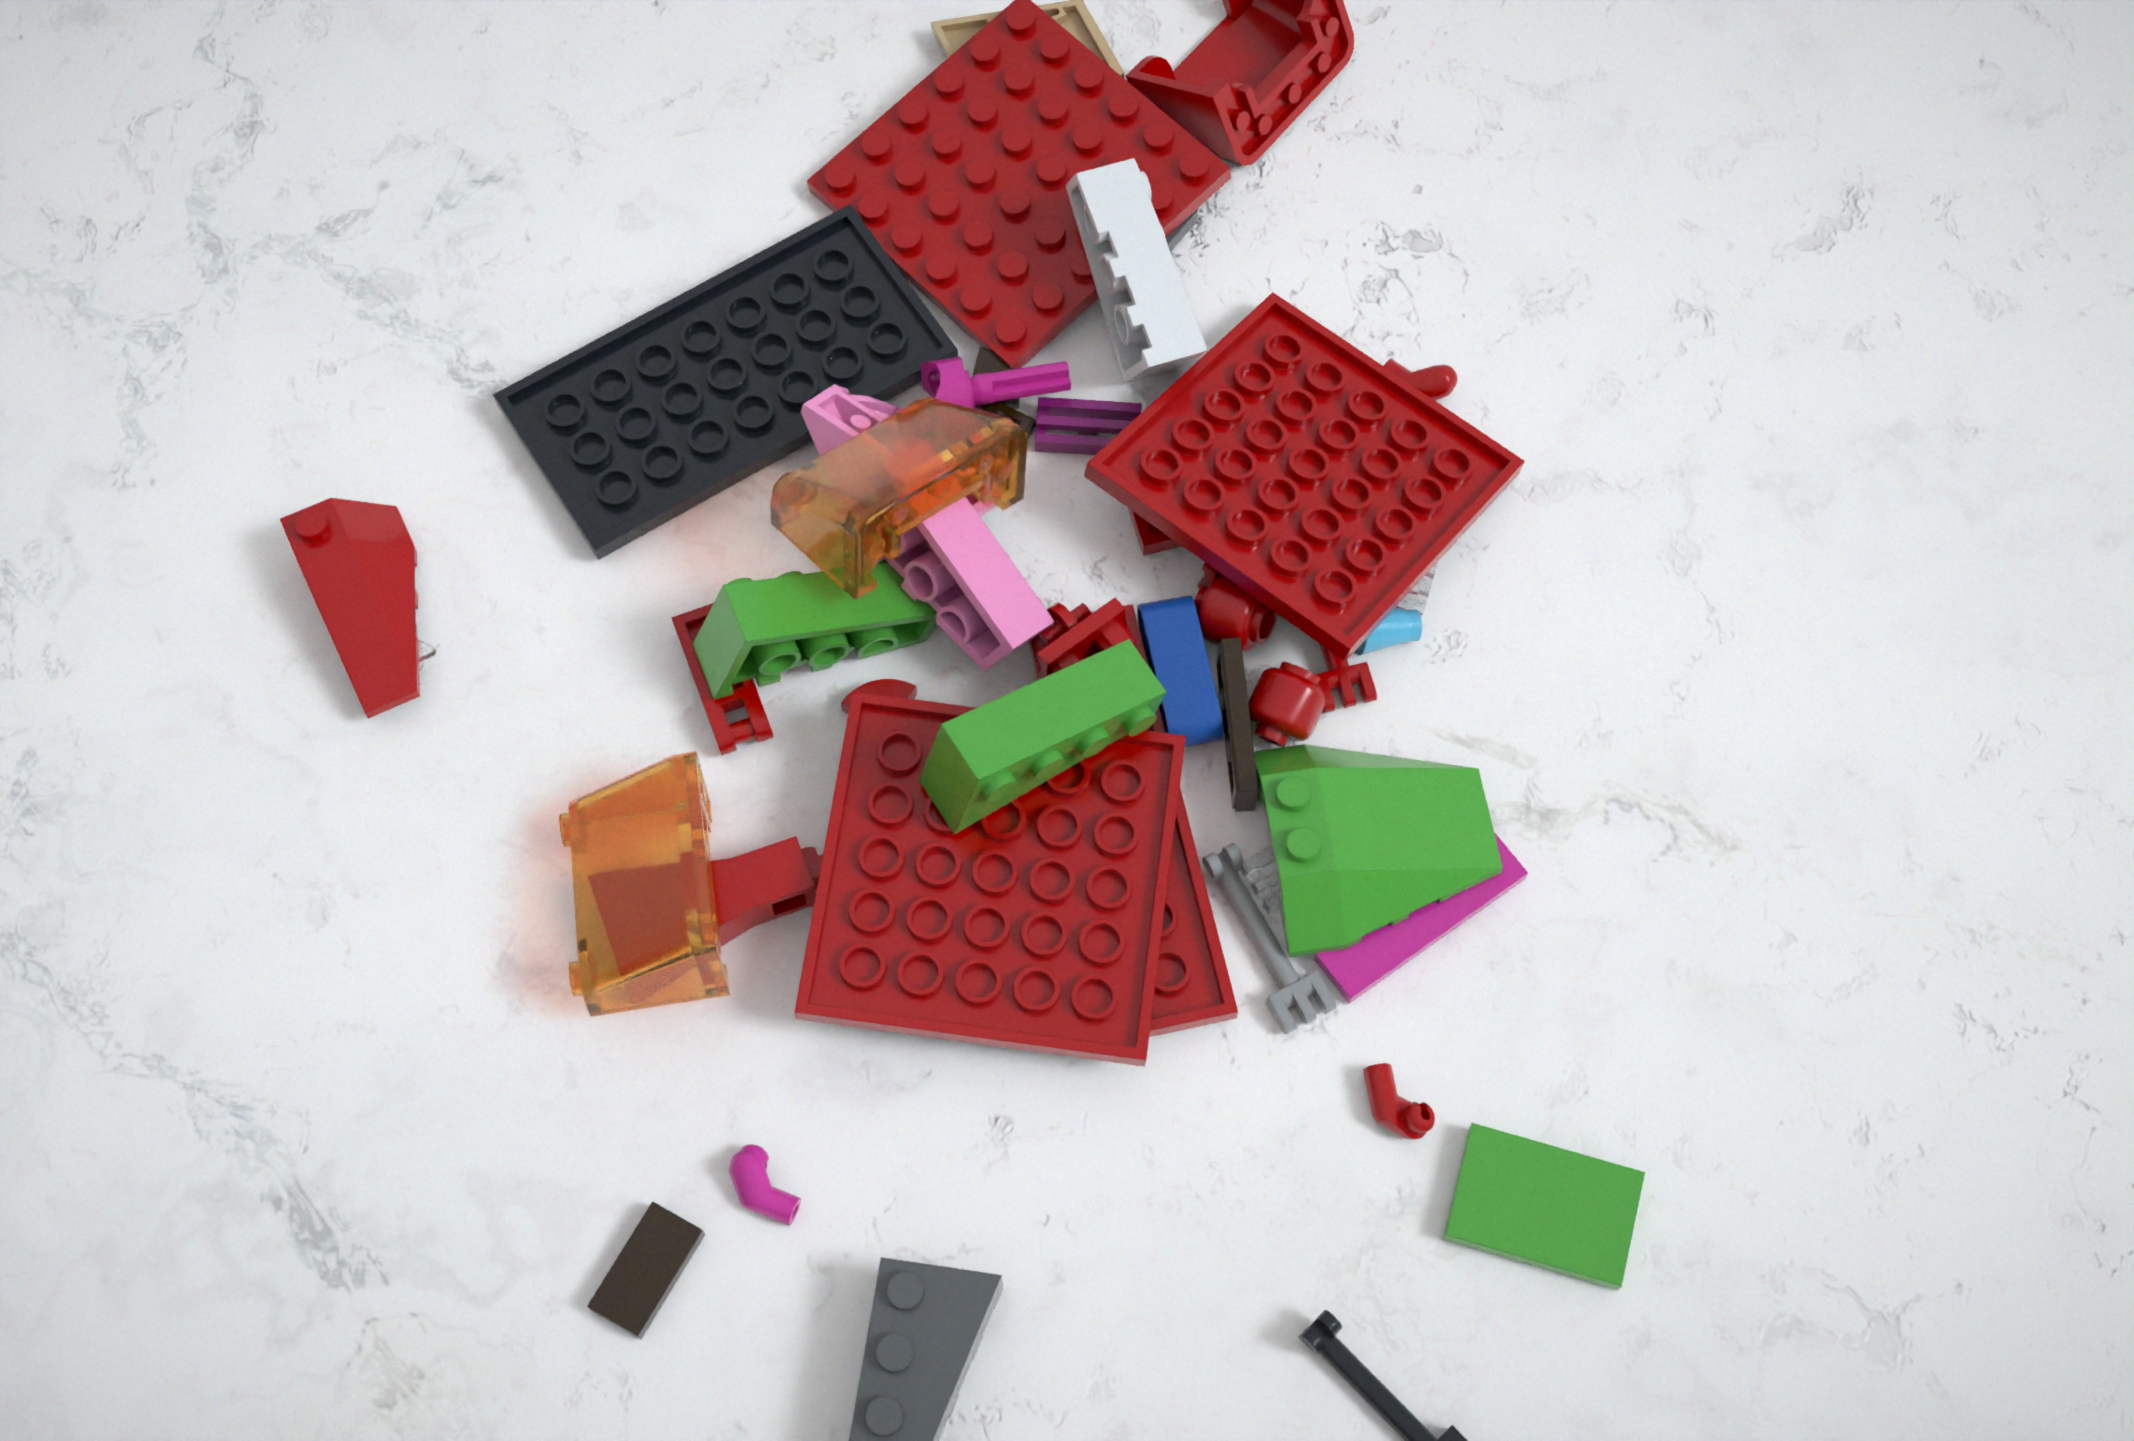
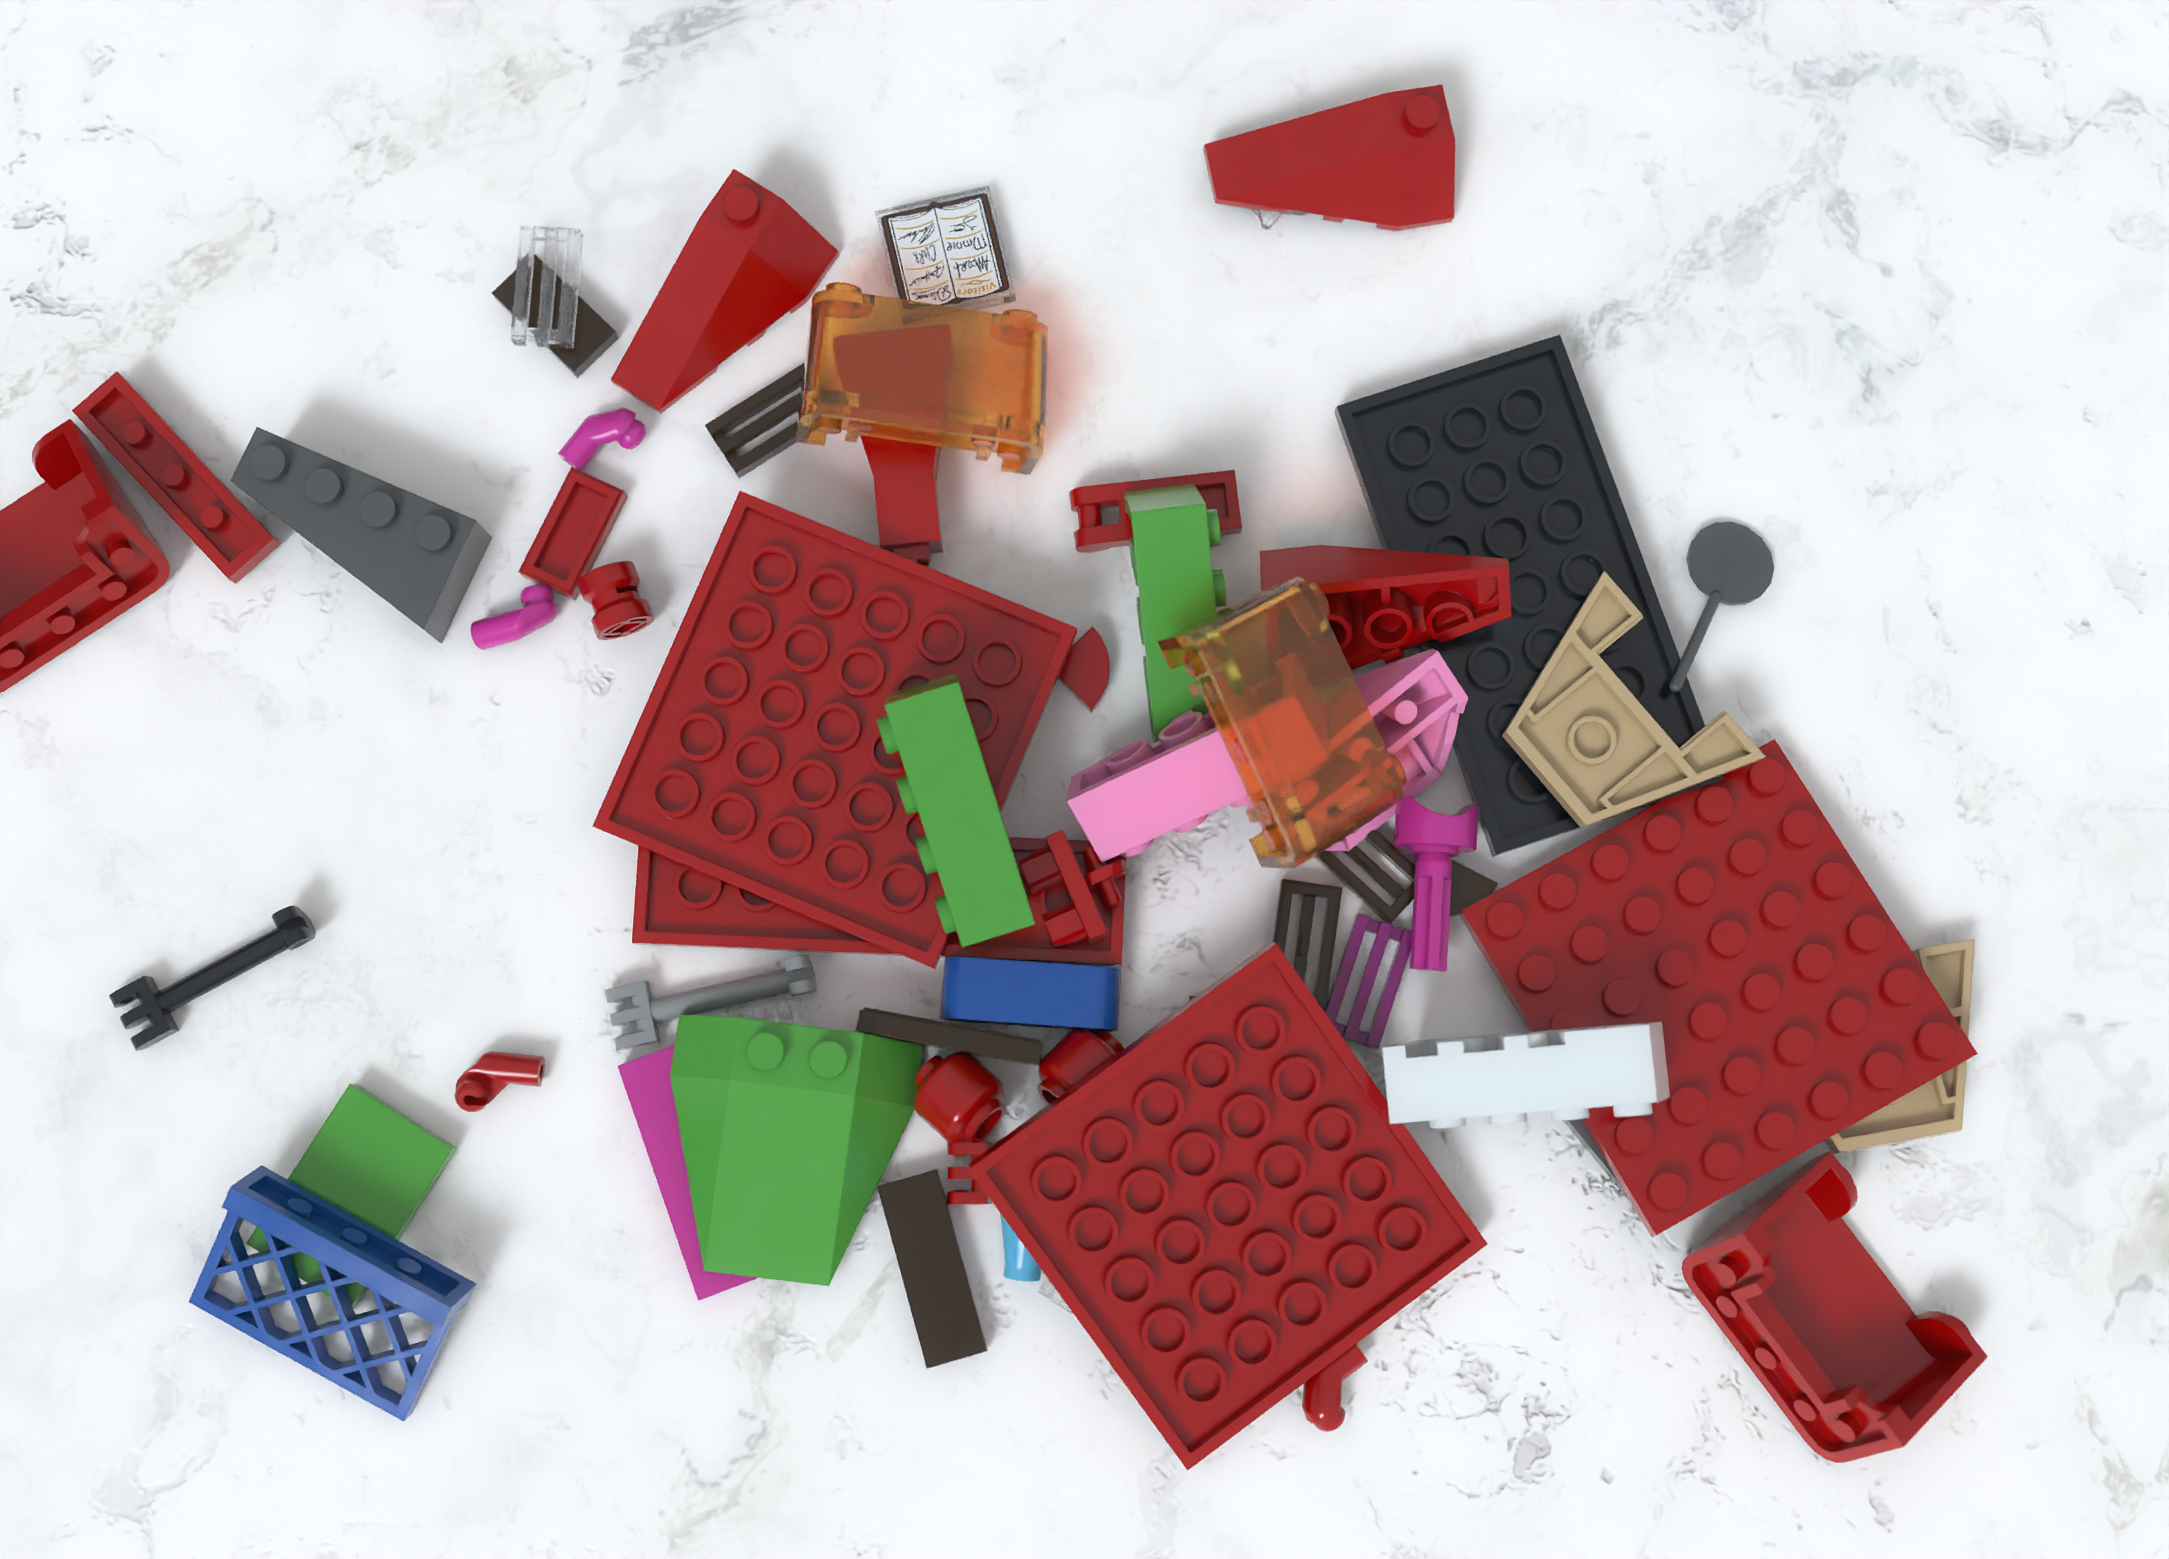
camera: 105 degrees right, 15 degrees up
(512, 919) = (947, 251): none -> tile
(569, 1288) = (544, 334): none -> clear tile
(584, 1105) = (731, 281): none -> red wedge
(673, 239) = (1731, 569): none -> dark grey piece
(746, 1066) = (749, 408): none -> dark brown tile
(753, 456) = (1395, 597): none -> red wedge
(838, 295) = (1596, 739): none -> tan wing
(864, 1188) = (573, 532): none -> red tile
(922, 1120) = (615, 600): none -> red wheel
(968, 1210) = (515, 624): none -> dark pink arm
(1065, 492) = (1309, 892): none -> dark brown tile
(1433, 696) = (932, 1268): none -> dark brown tile
(1592, 1188) = (343, 1246): none -> blue fence

